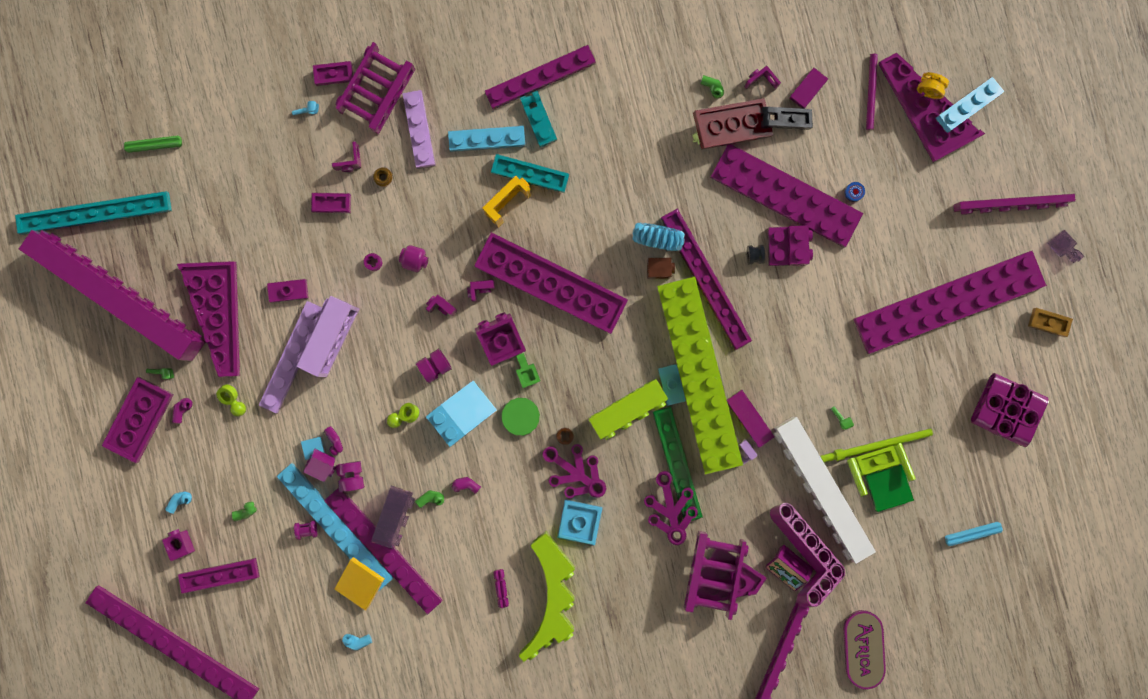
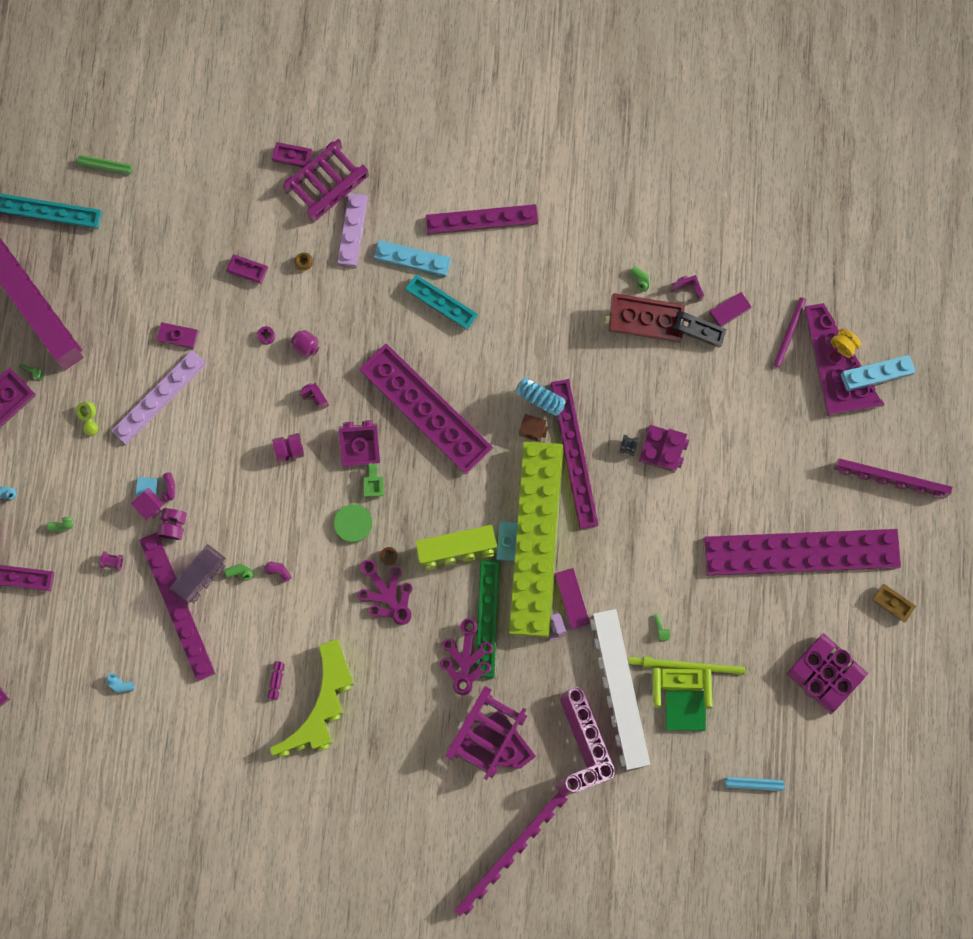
camera: 20 degrees right, 10 degrees down
(180, 408) = (36, 410): magenta arm -> none
(215, 304) = (106, 325): magenta wing -> none
(312, 108) = (260, 180): medium azure hand -> none
(327, 337) = (199, 387): lavender brick -> none
(329, 521) = (140, 569): medium azure plate -> none
(348, 166) = (276, 241): magenta bracket -> none
(359, 583) = (143, 628): yellow tile -> none
(395, 420) = (247, 484): lime plate -> none
(461, 413) = (297, 501): medium azure slope -> none
(482, 286) = (360, 391): magenta bracket -> none
(505, 195) = (408, 315): yellow panel -> none
(538, 119) = (467, 257): teal plate -> none
(579, 522) = (374, 642): medium azure tile -> none
(786, 195) = (677, 401): magenta plate -> none
(790, 568) = (562, 755): panel -> none
(854, 191) = (743, 418): blue tile -> none
(864, 649) = (609, 861): dark tan tile -> none
(1064, 244) = (931, 534): clear purple plate -> none

